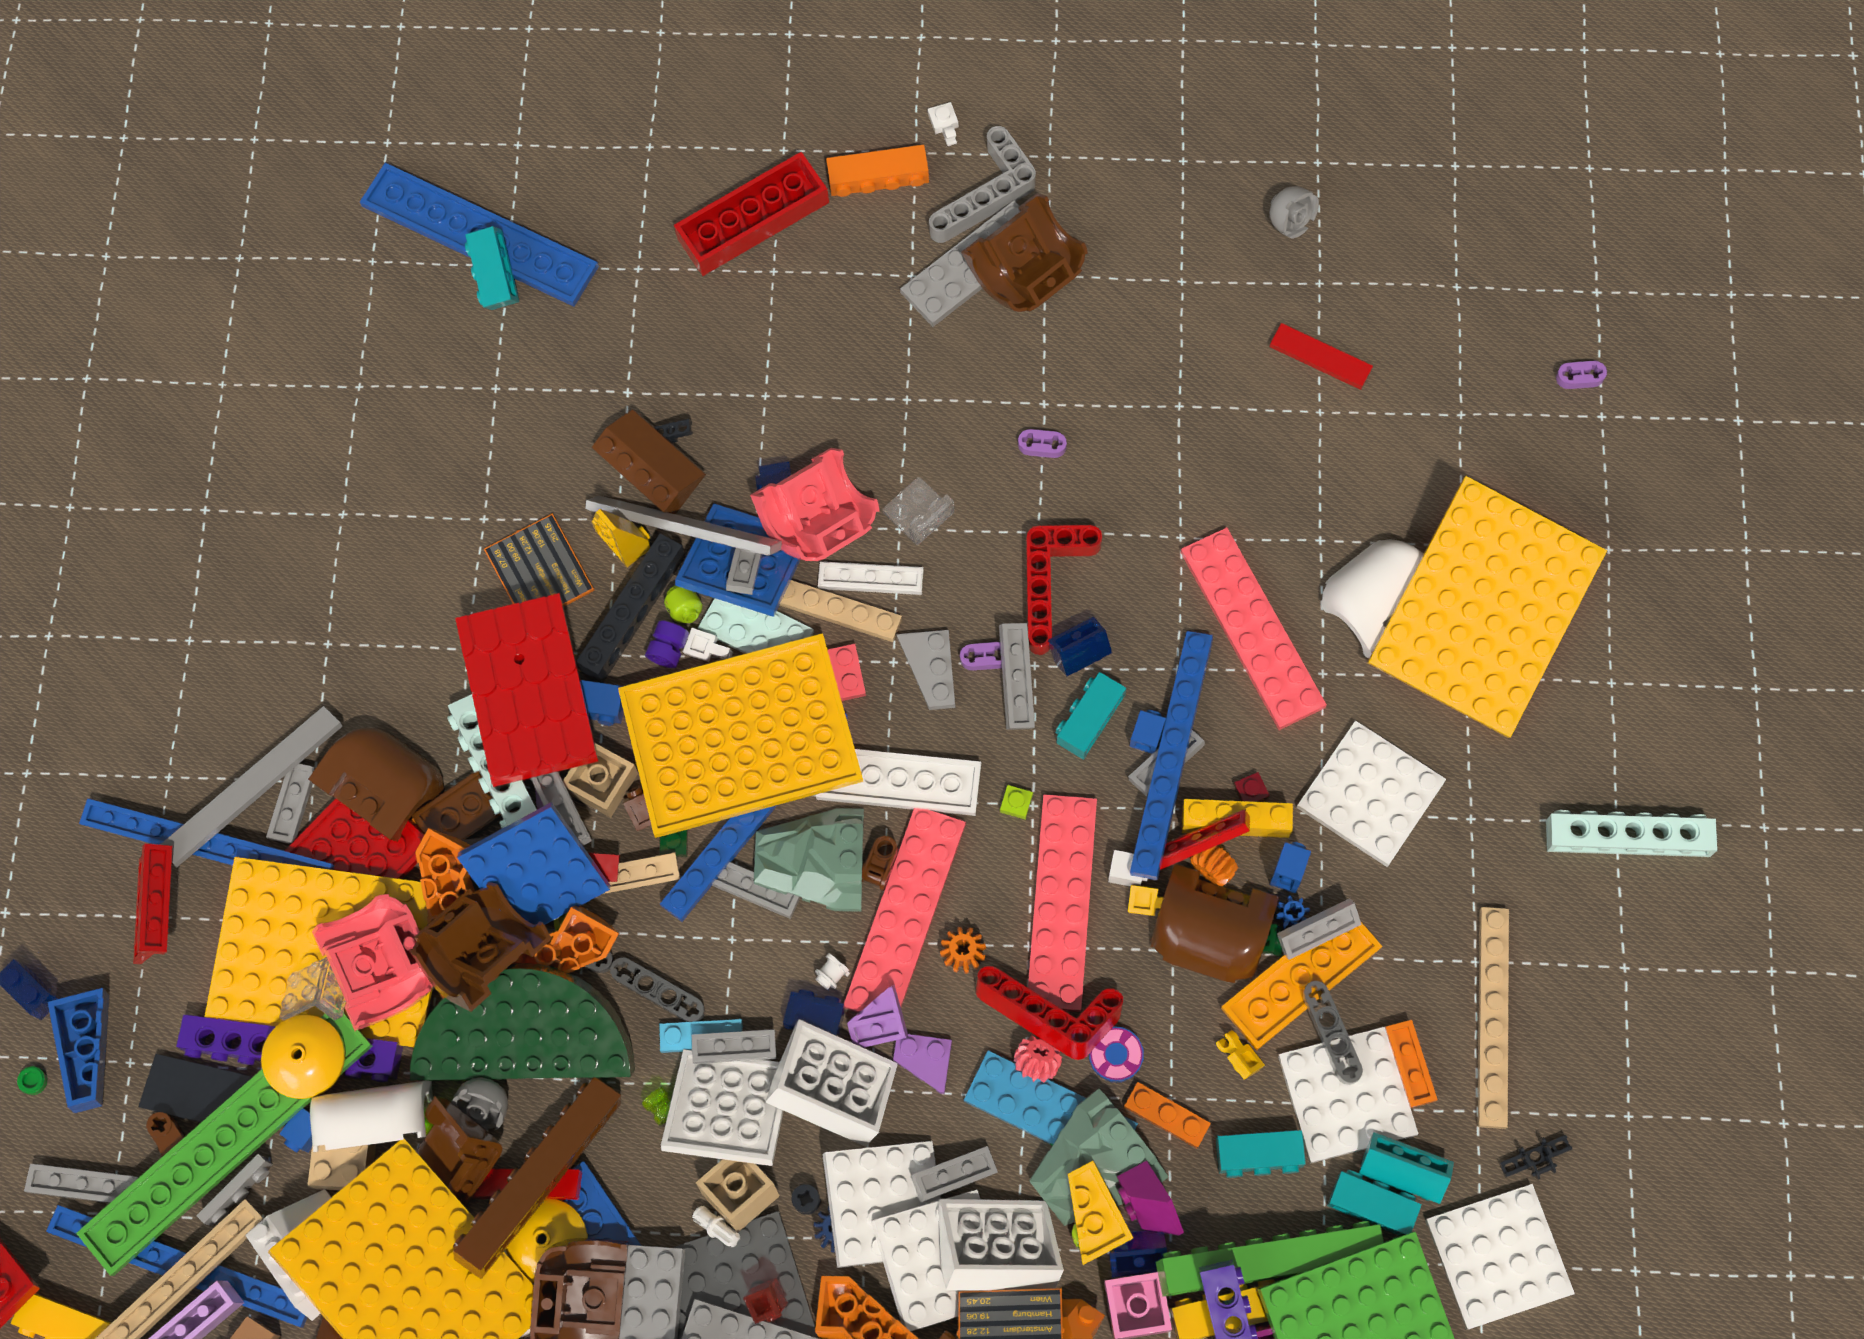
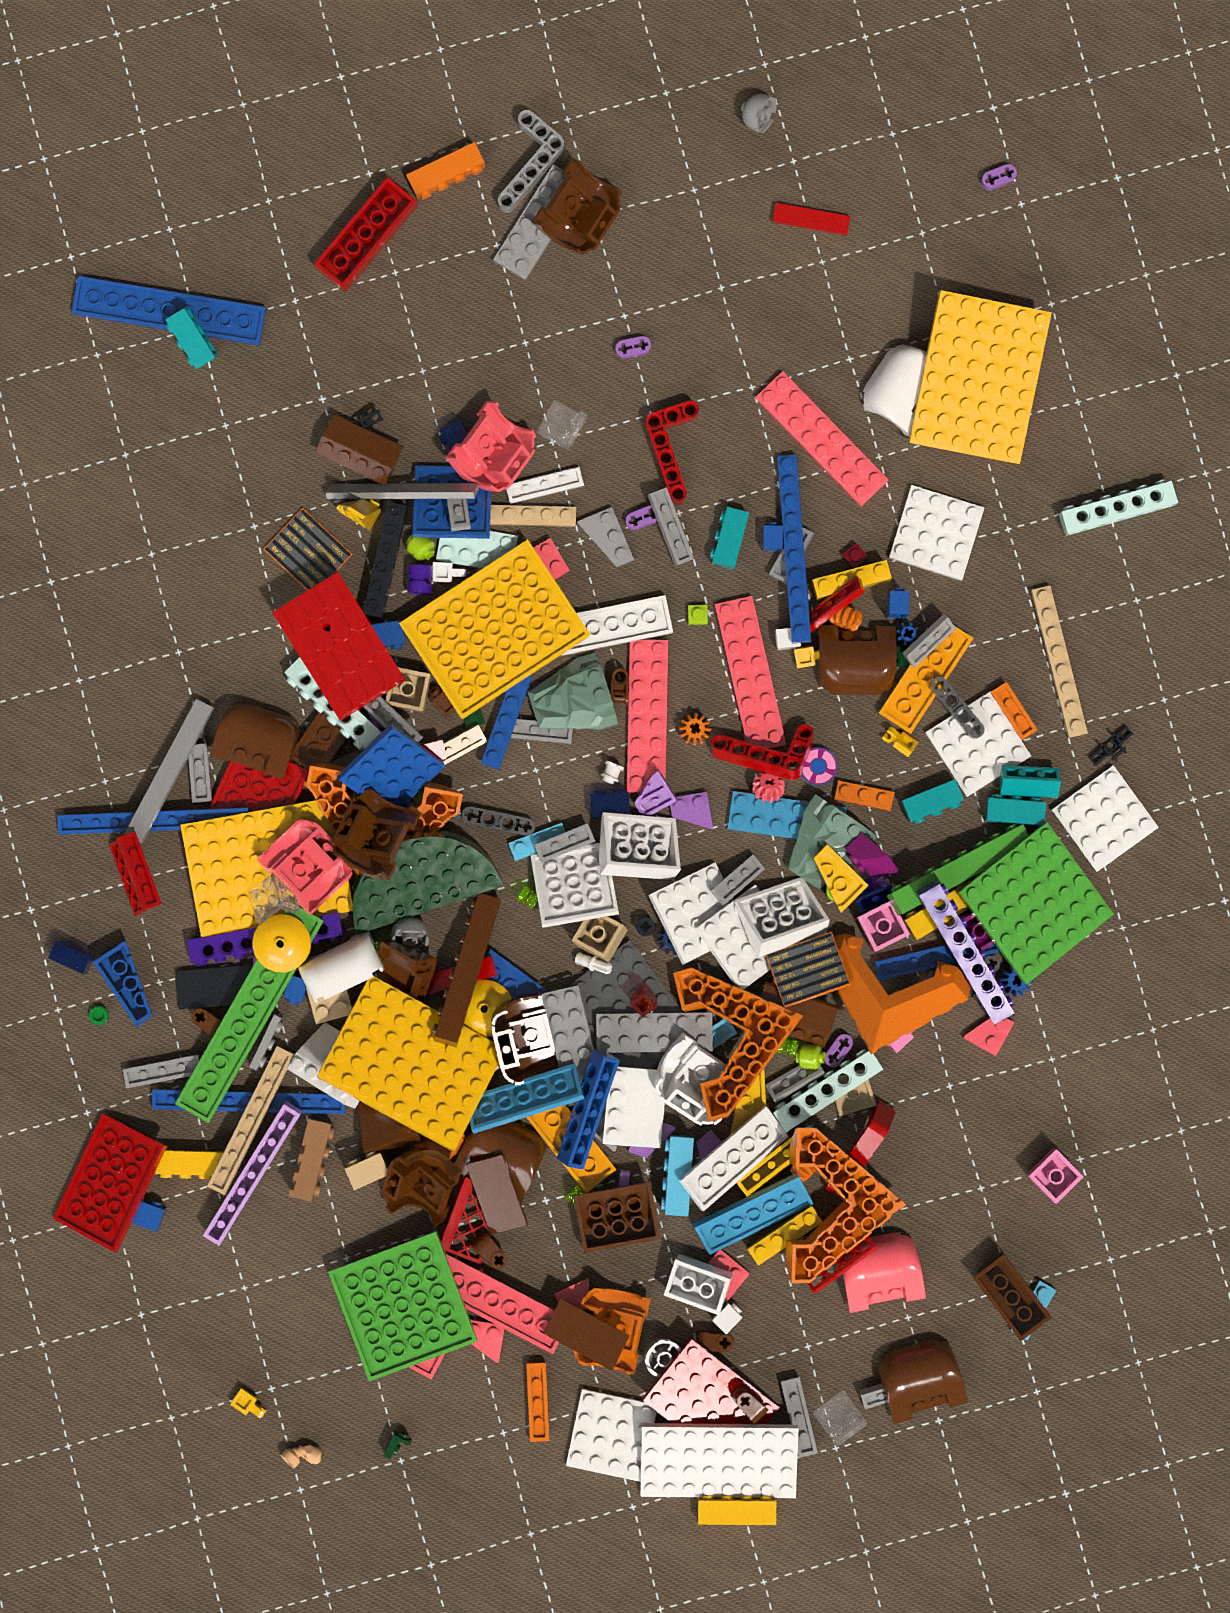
camera: 25 degrees left, 15 degrees up
(945, 121) = (480, 115): white plate -> none
(1080, 646) = (708, 491): clear blue brick -> none

